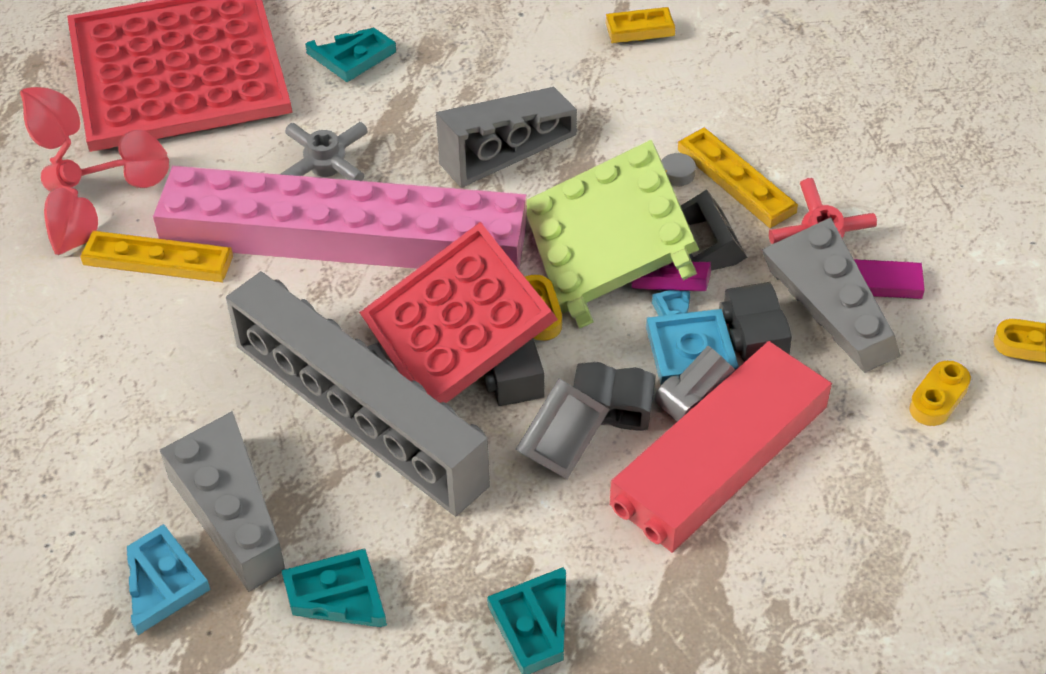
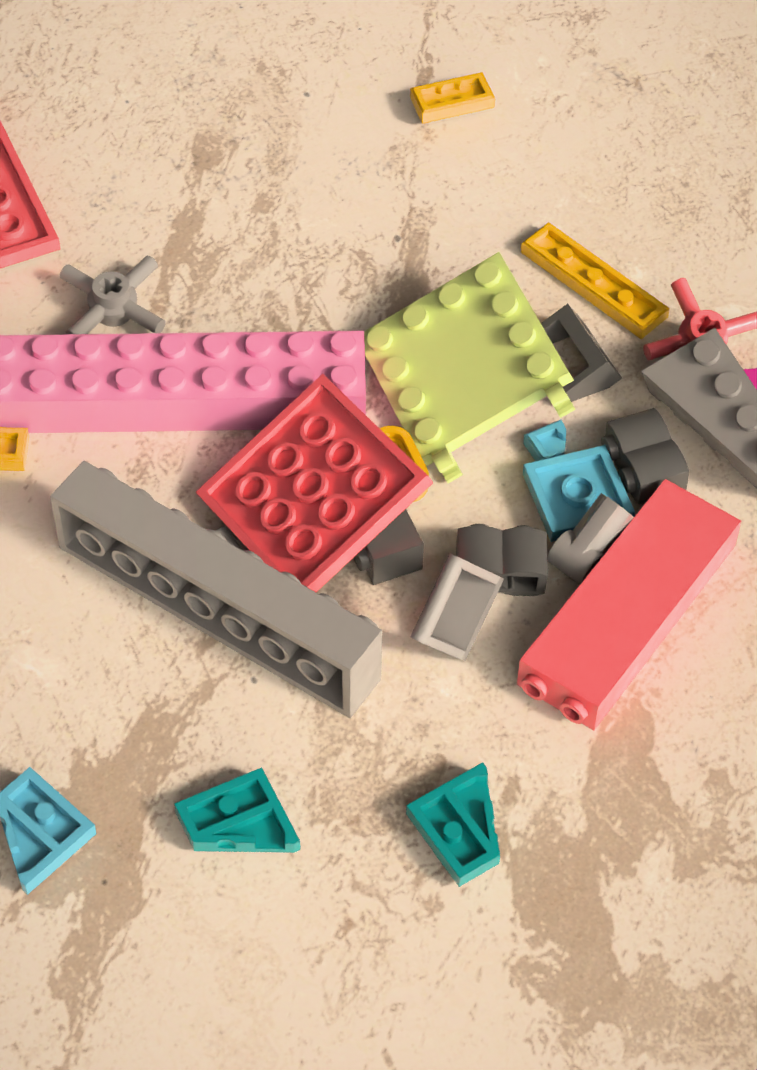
camera: 10 degrees left, 5 degrees up
(223, 493) = (91, 725): light grey wedge -> none
(352, 52) = (117, 165): teal wing -> none
(501, 132) = (318, 253): light grey wedge -> none
(670, 279) = (544, 415): dark pink plate -> none
(679, 168) = (530, 276): light grey tile -> none

